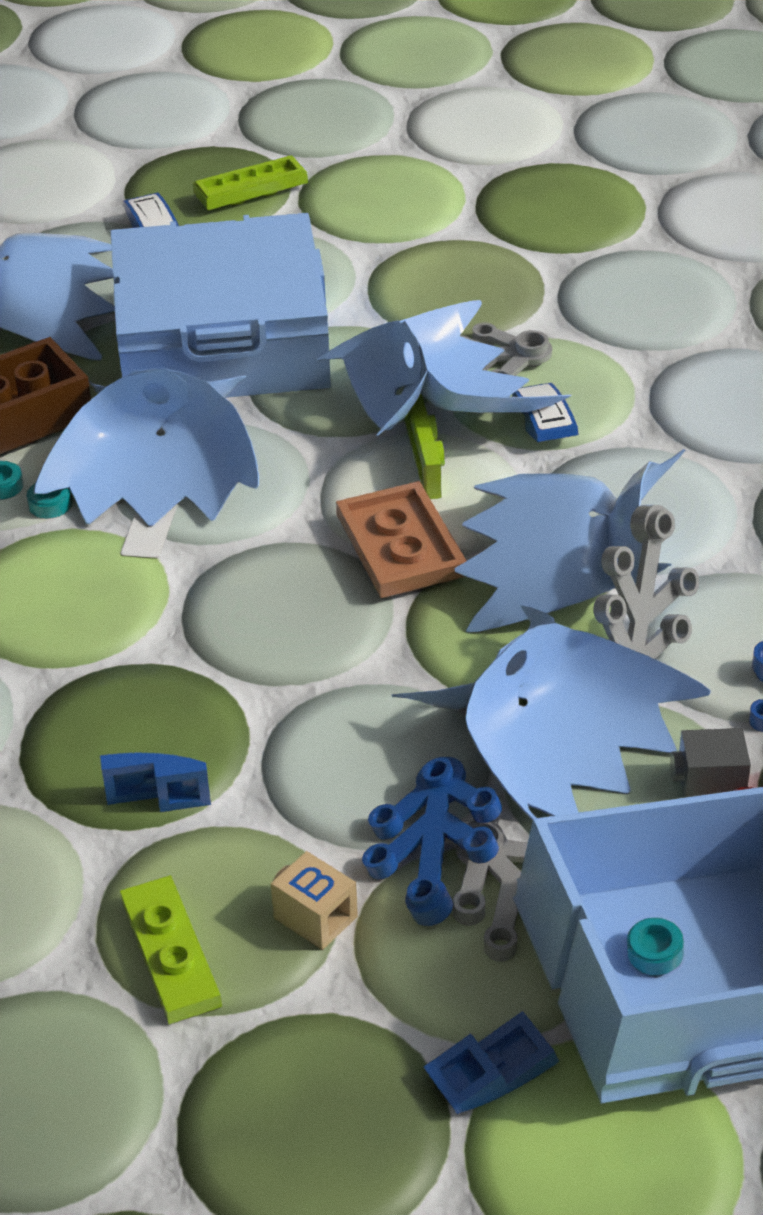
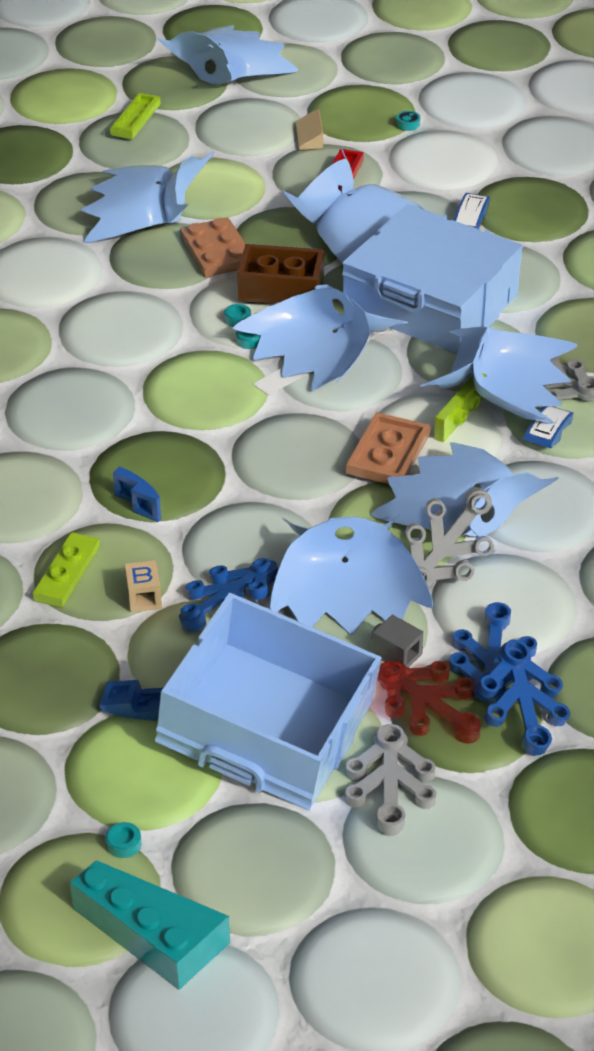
camera: 40 degrees right, 0 degrees up
(250, 182) = (551, 215): lime plate -> none
(655, 946) = (257, 696): teal tile -> none

